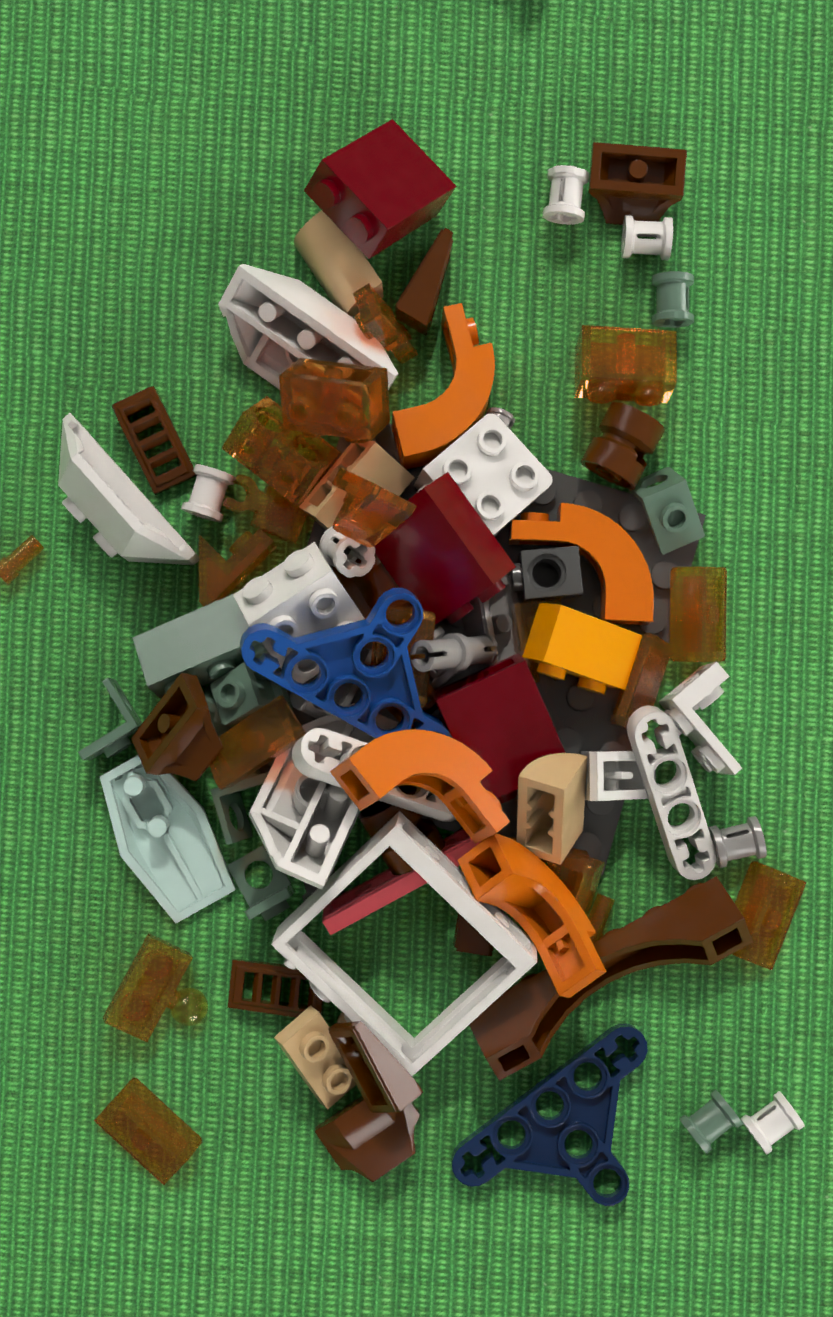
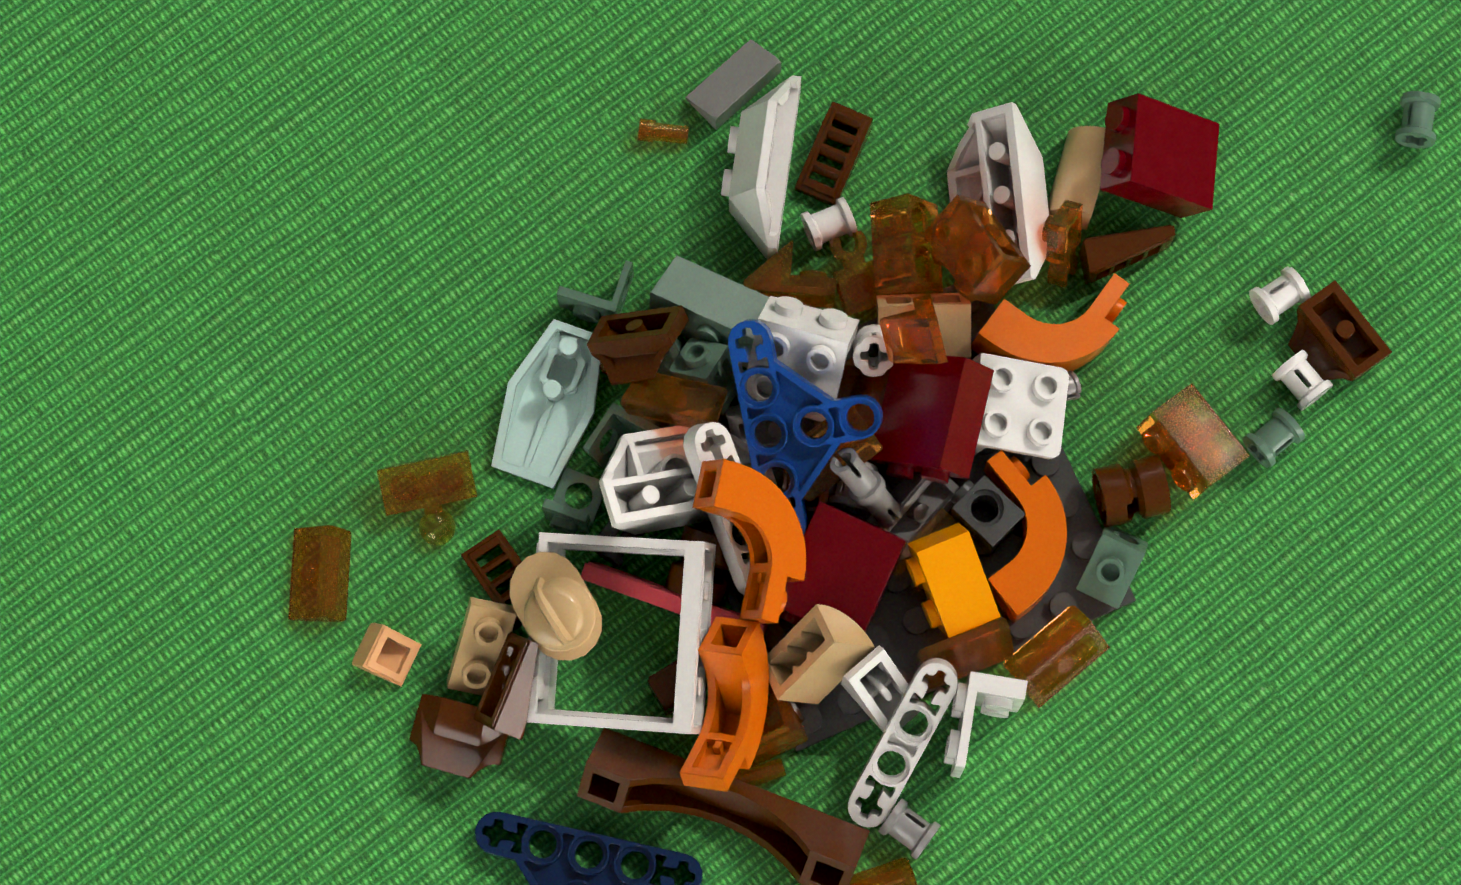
camera: 50 degrees right, 10 degrees down
(27, 468) = (734, 83): none -> light grey slope
(257, 1131) = (386, 653): none -> light nougat slope
(341, 981) = (555, 606): none -> tan piece

